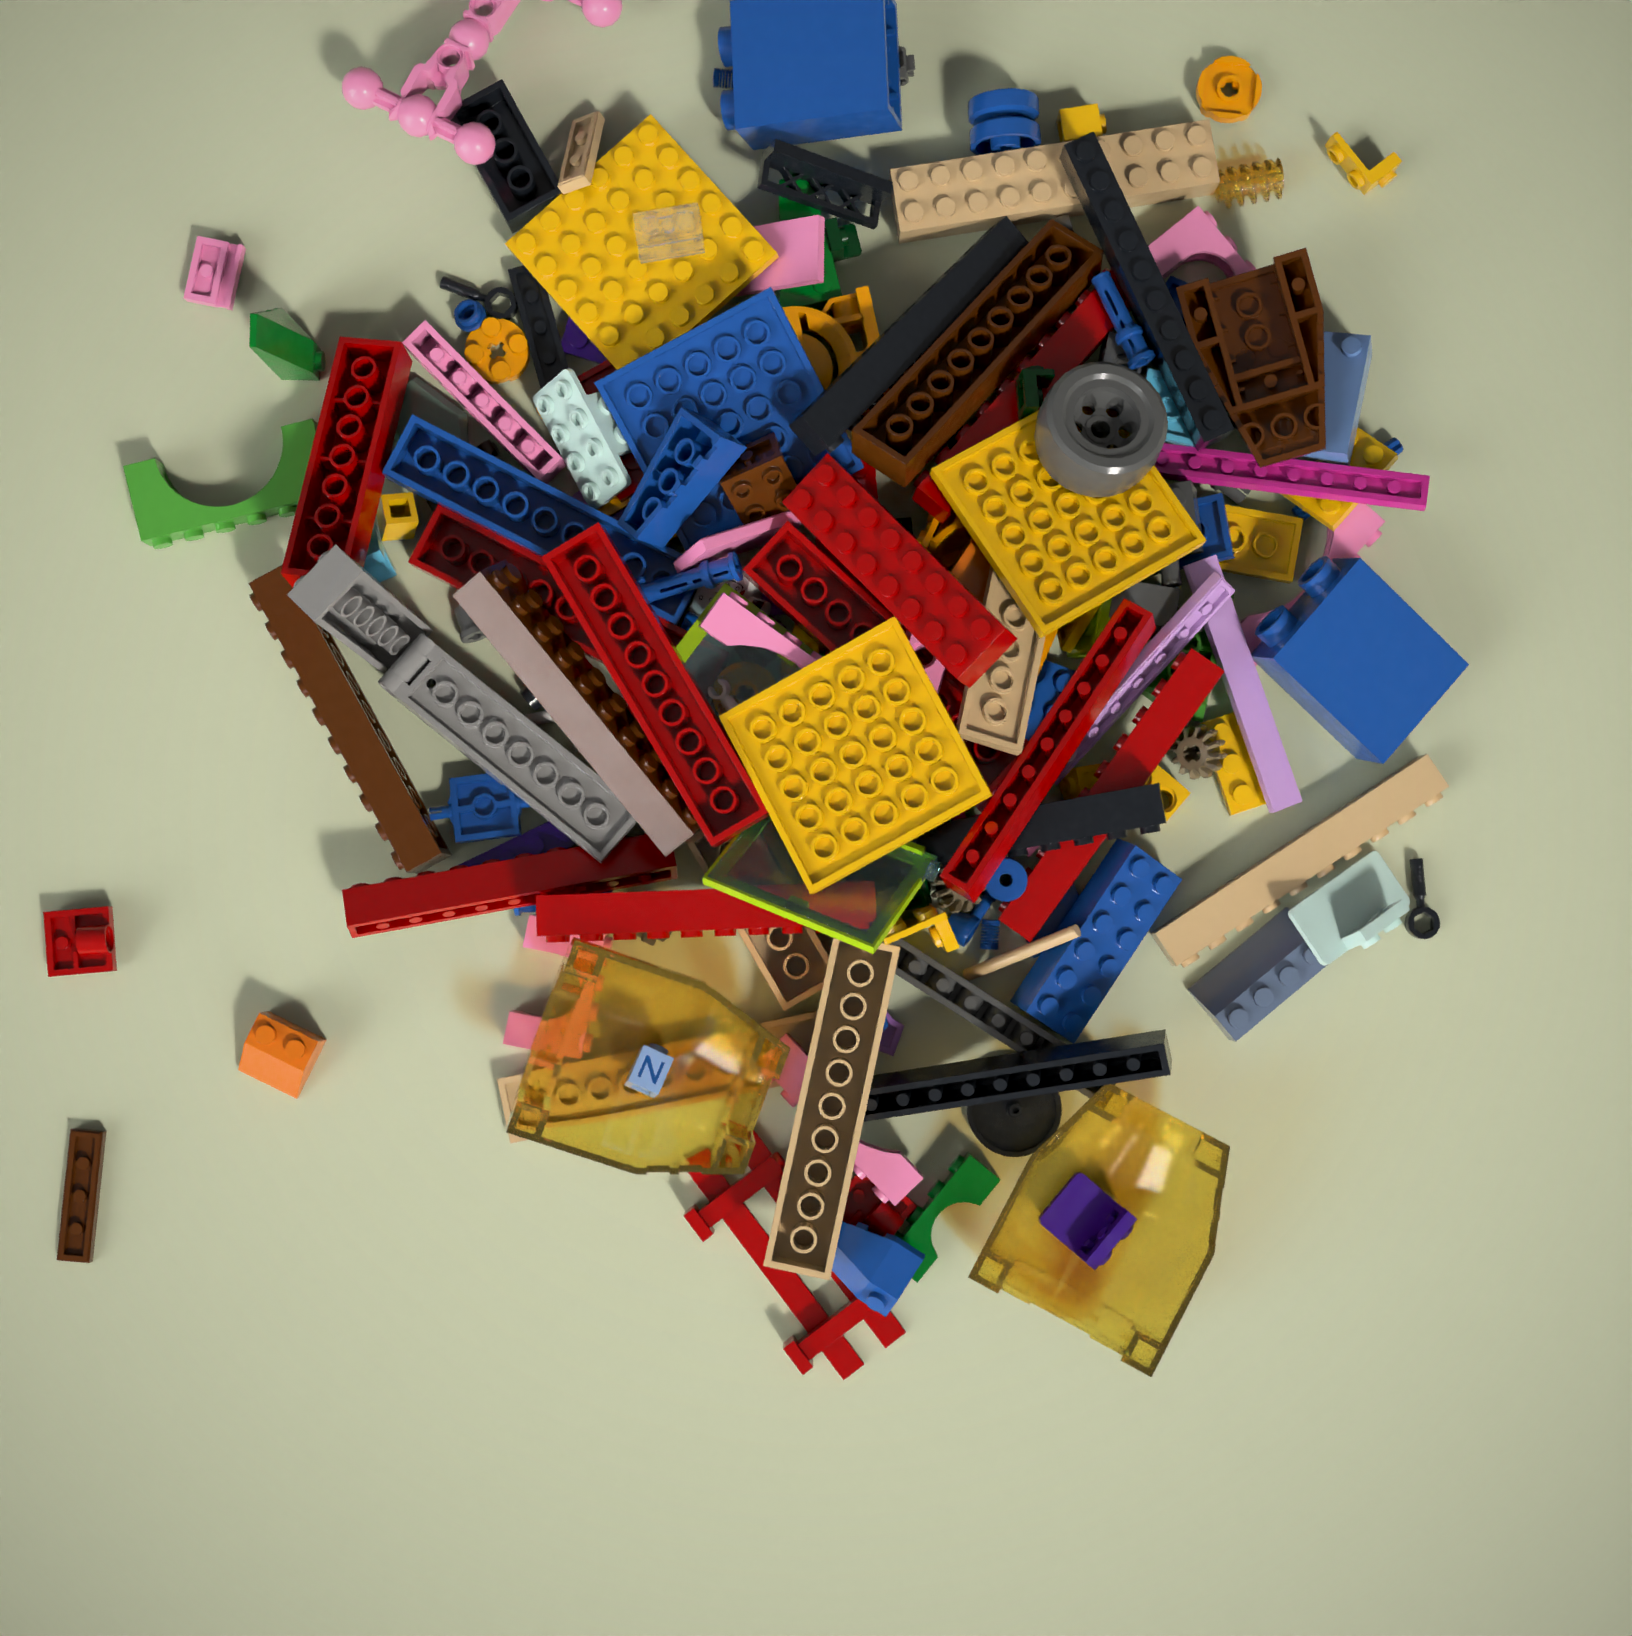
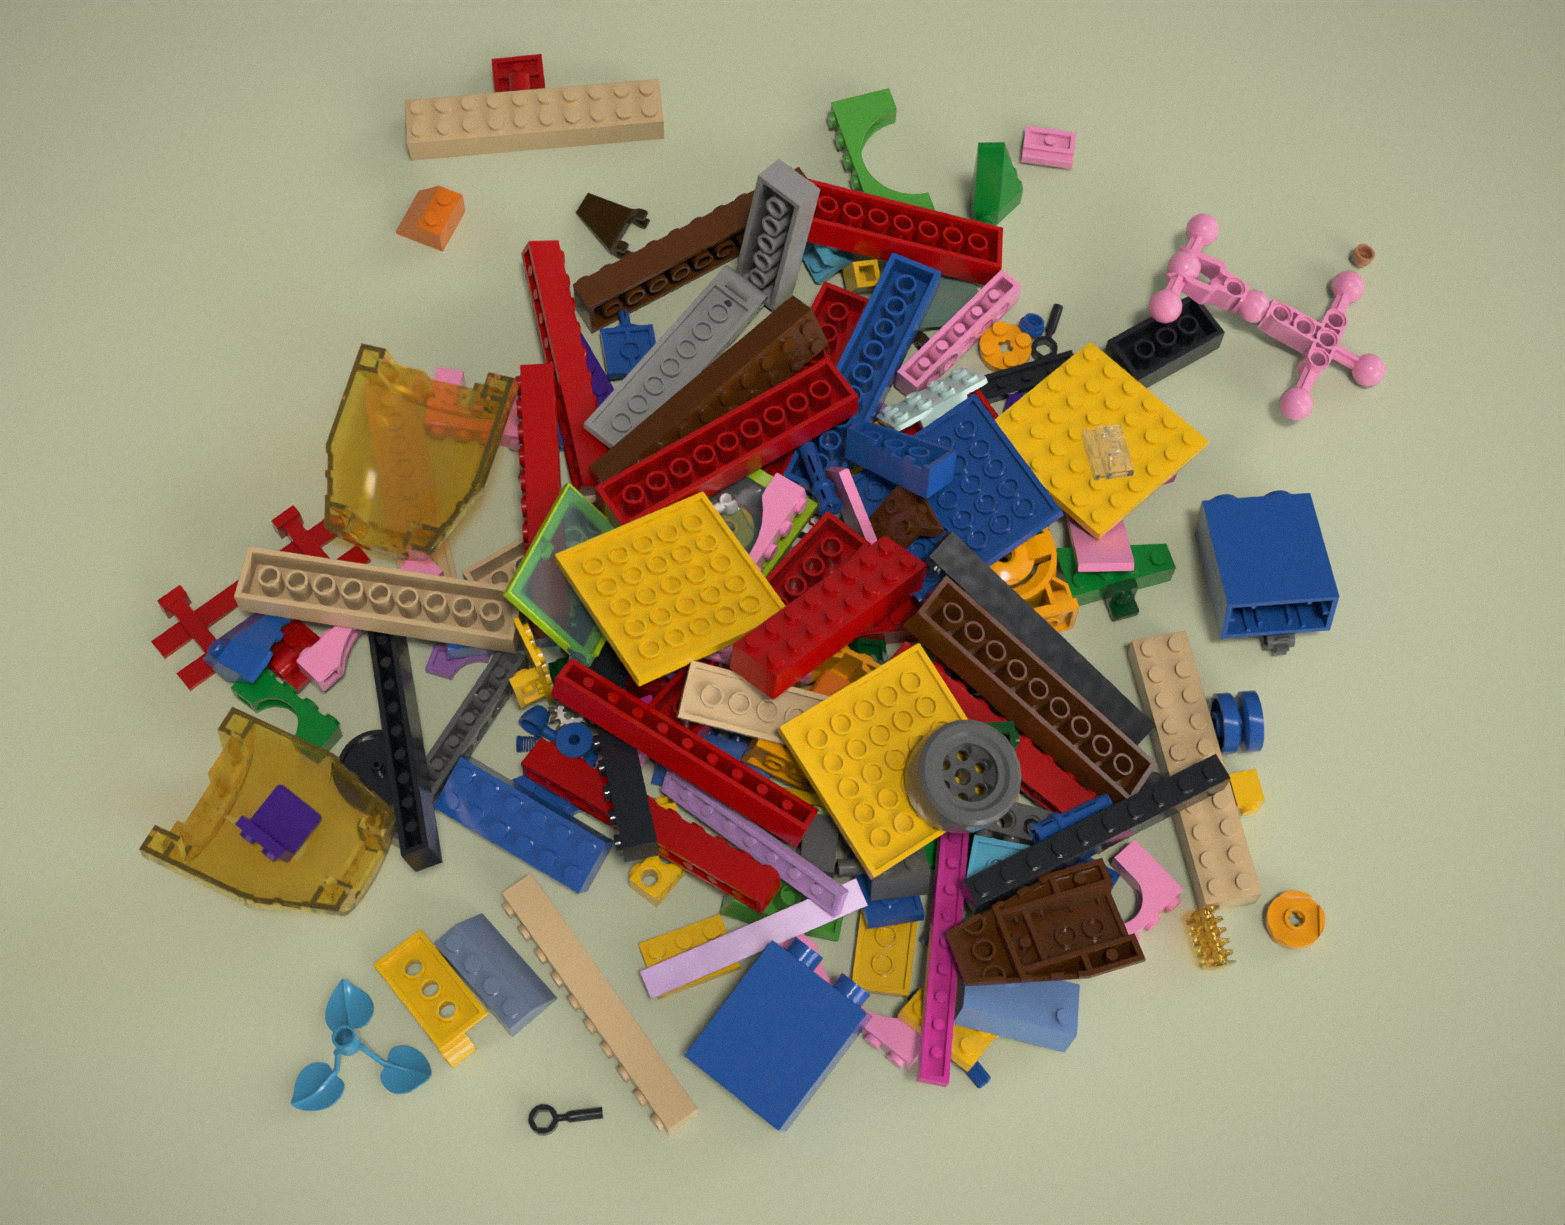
camera: 85 degrees right, 20 degrees down
(81, 1195) = (323, 91): reddish brown tile -> none
(143, 921) = (534, 119): none -> tan brick
(296, 829) = (610, 222): none -> dark brown flag
(581, 152) = (1172, 394): tan tile -> none
(649, 1070) = (413, 469): light blue brick -> none
(823, 173) = (1173, 571): black fence -> none
(1022, 952) = (512, 760): tan bar -> none
(1208, 747) = (693, 907): dark tan gear -> none
(1294, 1134) = (347, 1009): none -> dark azure plant
(1336, 1025) = (445, 1033): none -> yellow hinge
(1351, 909) = (554, 1042): light aqua bracket -> none
(1357, 173) = (1232, 1055): yellow bracket -> none

